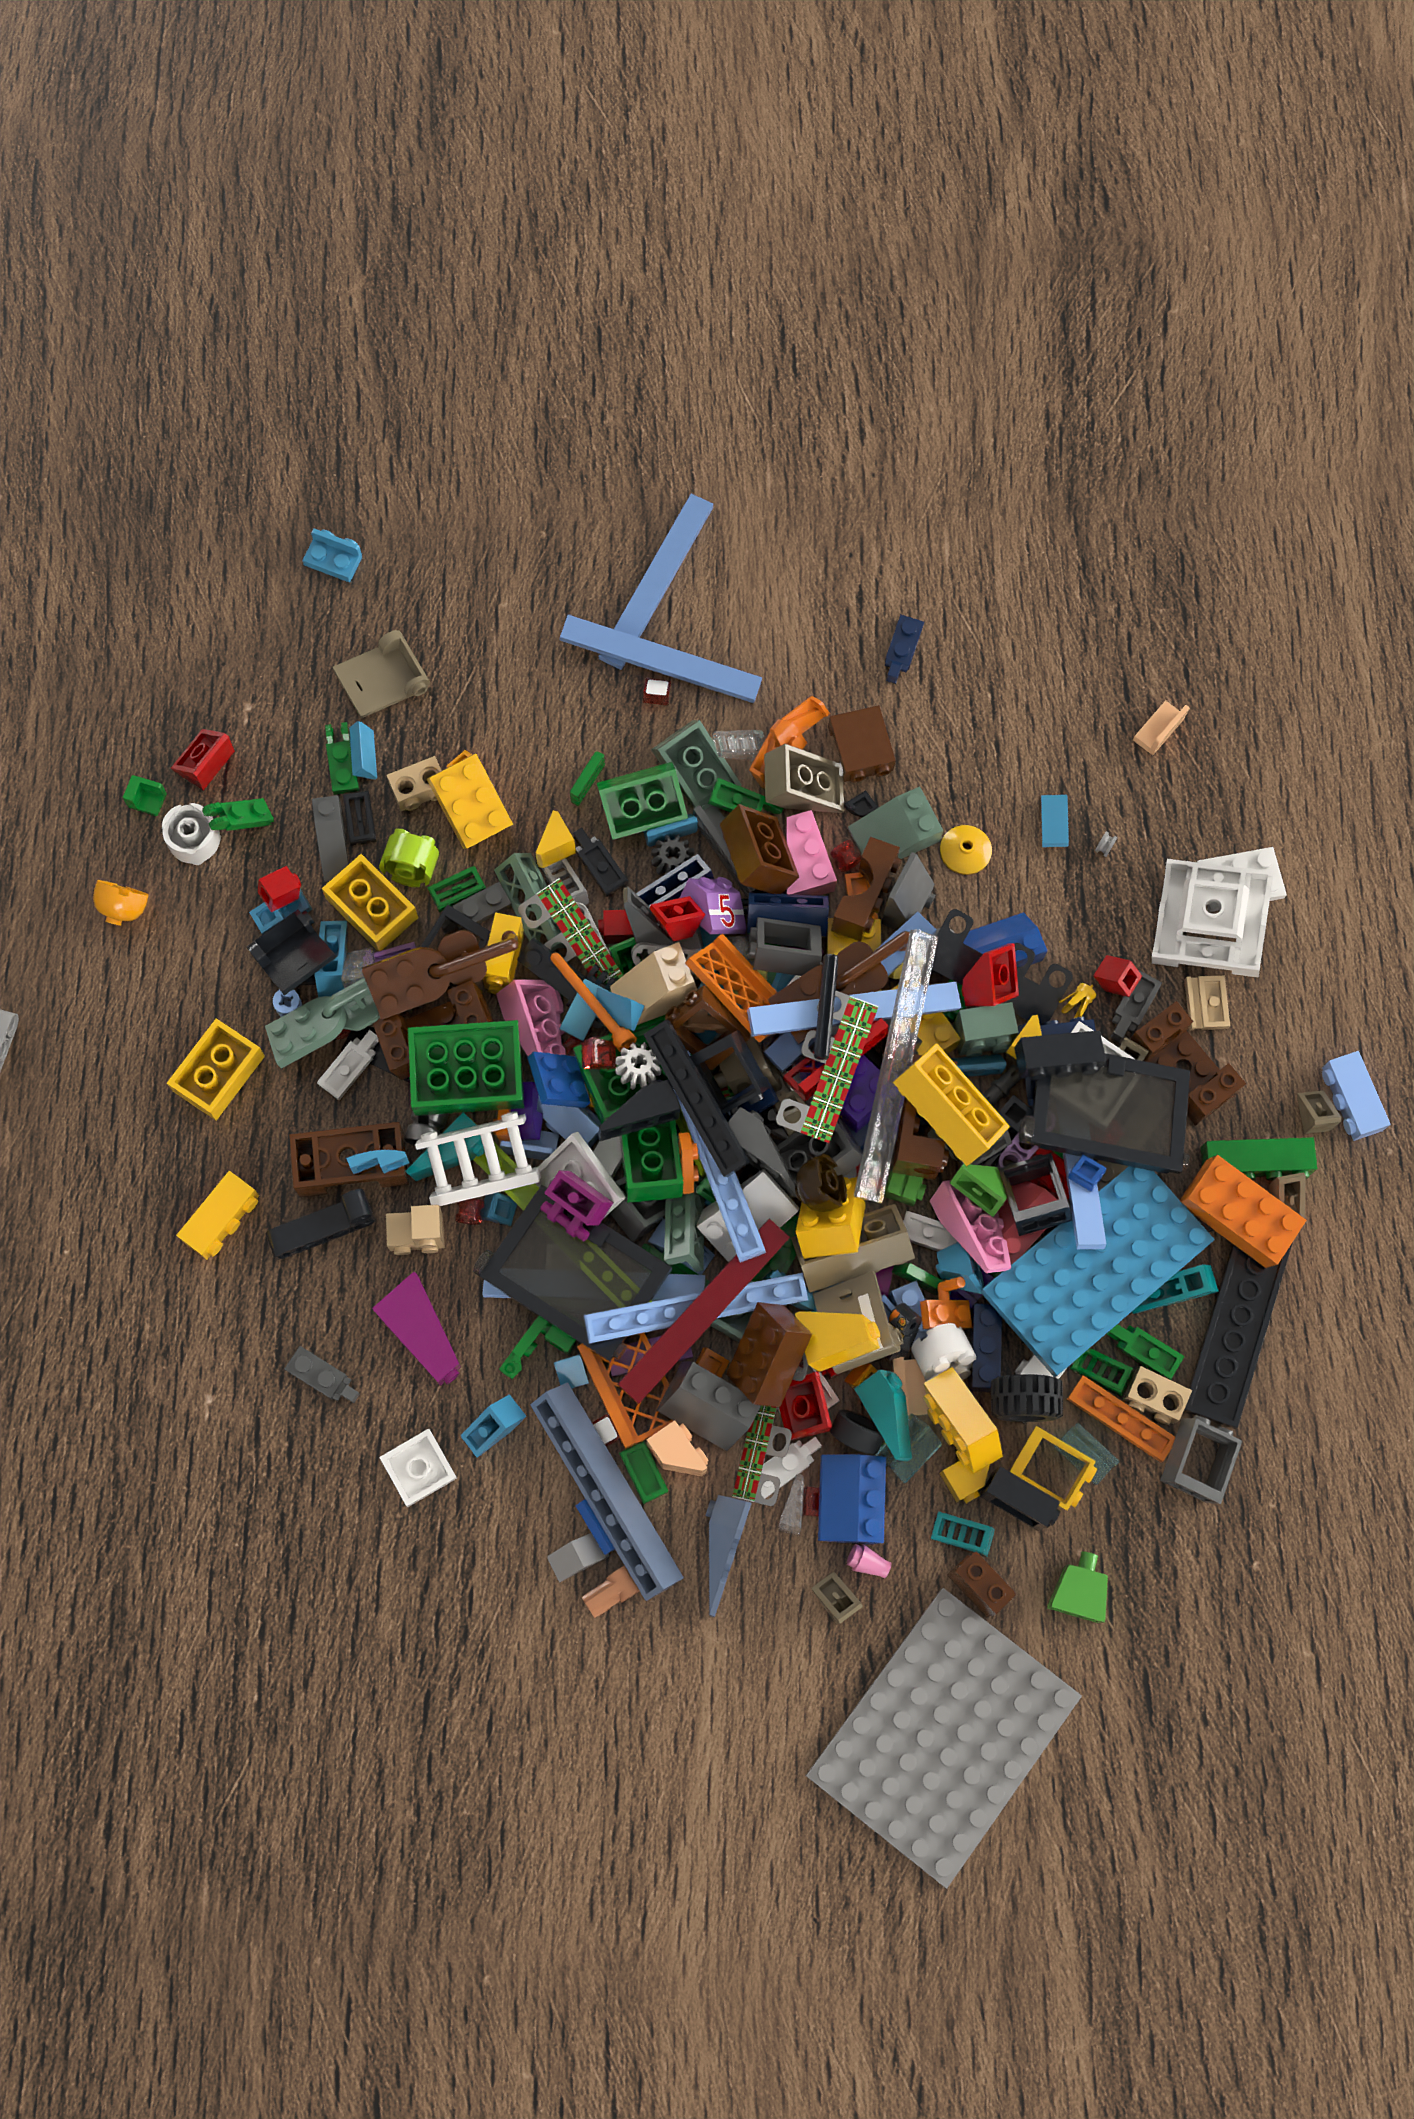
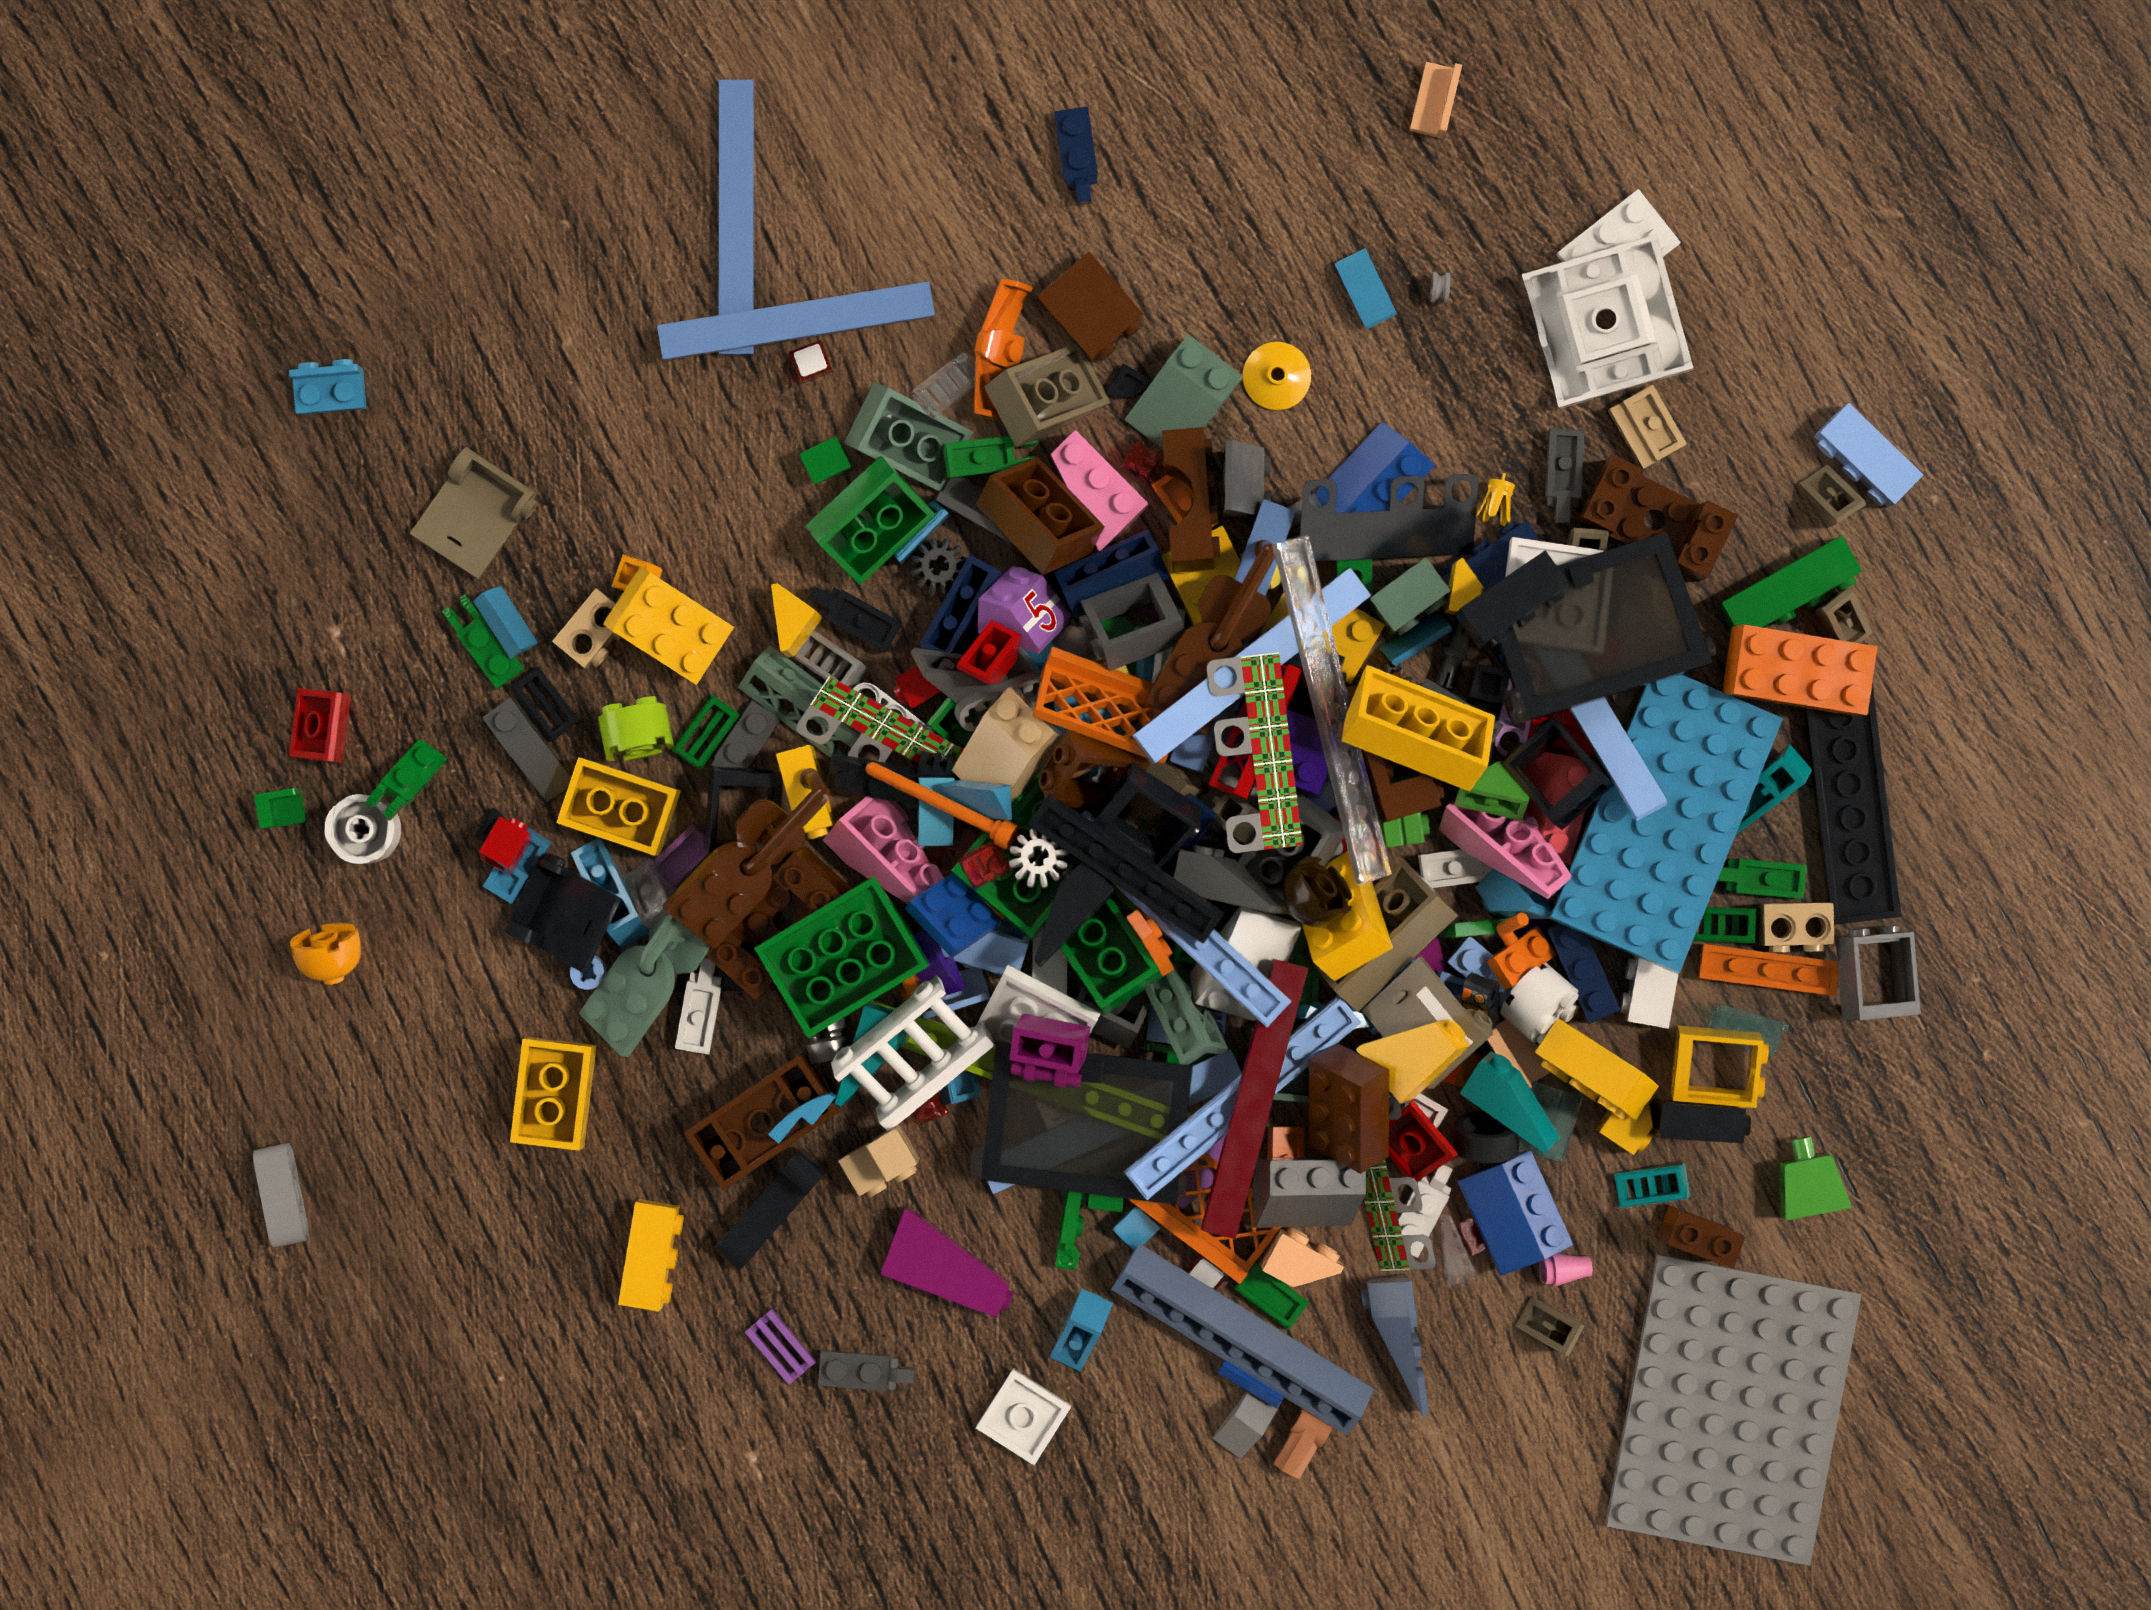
camera: 20 degrees left, 15 degrees up
(268, 1306) = (772, 1358): none -> medium lavender tile
(587, 778) = (787, 519): green tile -> none
(633, 752) = (826, 460): none -> green panel
(826, 1007) = (1221, 687): black axle -> none
(992, 978) = (1390, 539): red slope -> none
(1027, 1398) = (1657, 1015): black tyre -> none
(1087, 1172) = (1606, 721): blue tile -> none
(1117, 975) = (1529, 450): red brick -> none

